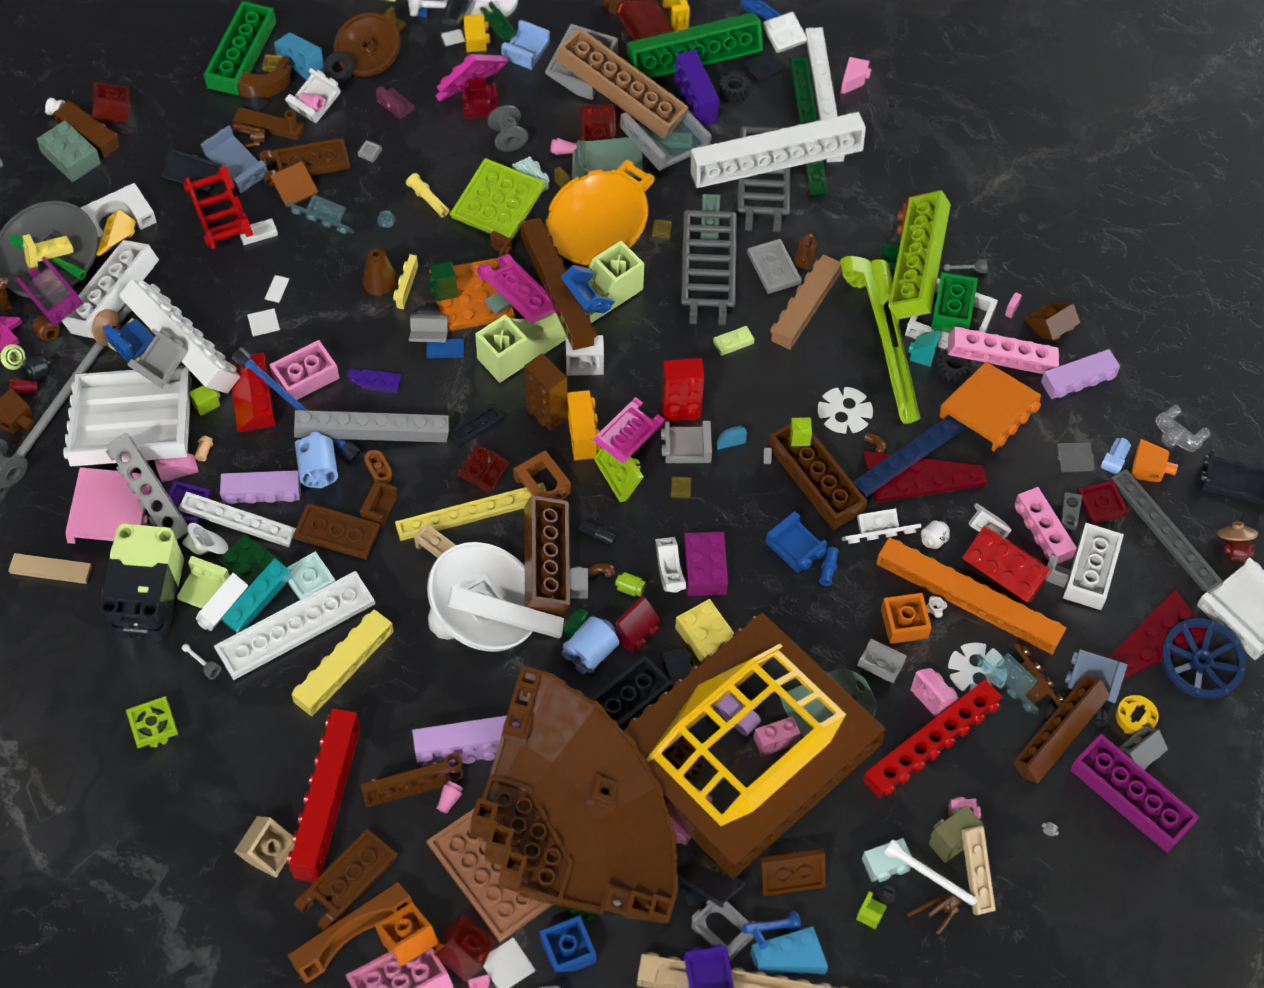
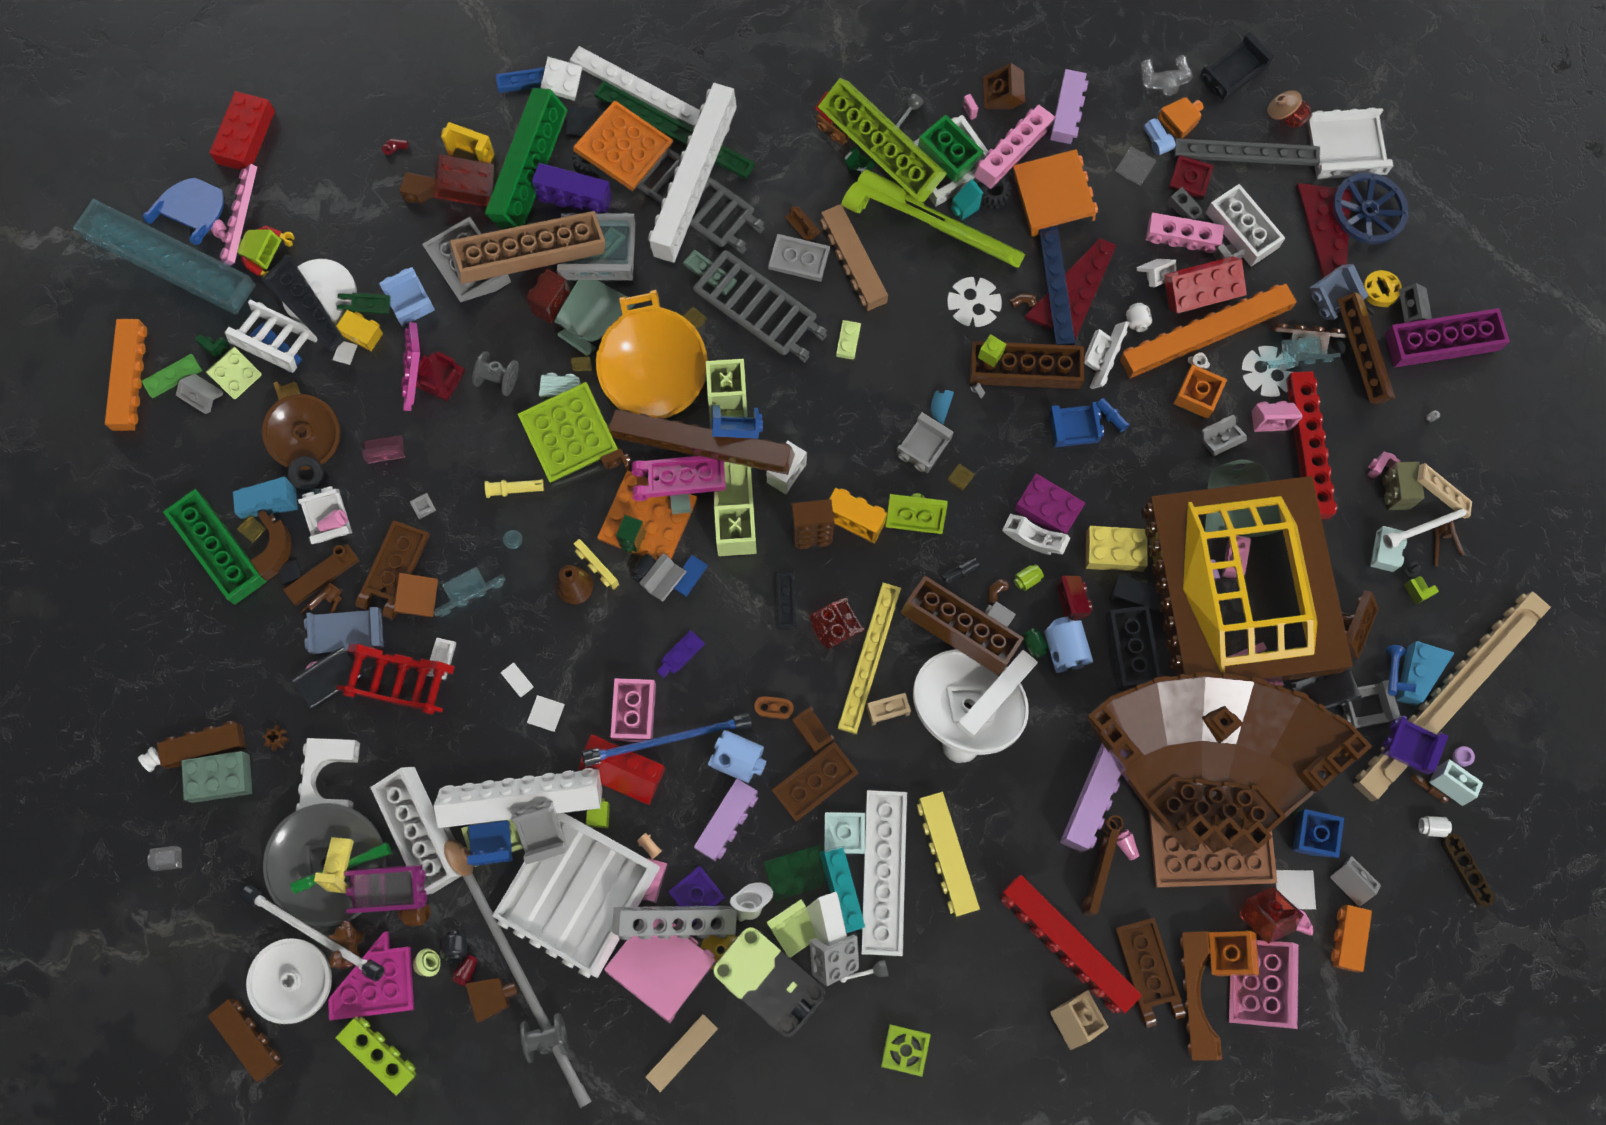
camera: 55 degrees left, 15 degrees up
(110, 102) = (188, 704): clear red slope -> none
(117, 228) = (354, 787): yellow slope -> none
(122, 167) = (273, 734): none -> reddish brown gear
(196, 627) = (835, 961): none -> light grey bracket
(237, 519) = (745, 860): white tile -> none
(372, 426) = (736, 690): light grey brick -> none
(532, 466) = (882, 594): dark orange panel -> none
(561, 146) = (545, 342): bright pink cone -> none
(628, 431) = (894, 483): dark pink hinge -> none
(682, 389) = (888, 414): red brick -> none
(762, 97) = (623, 145): none -> orange plate
(855, 74) = (649, 56): bright pink slope -> none

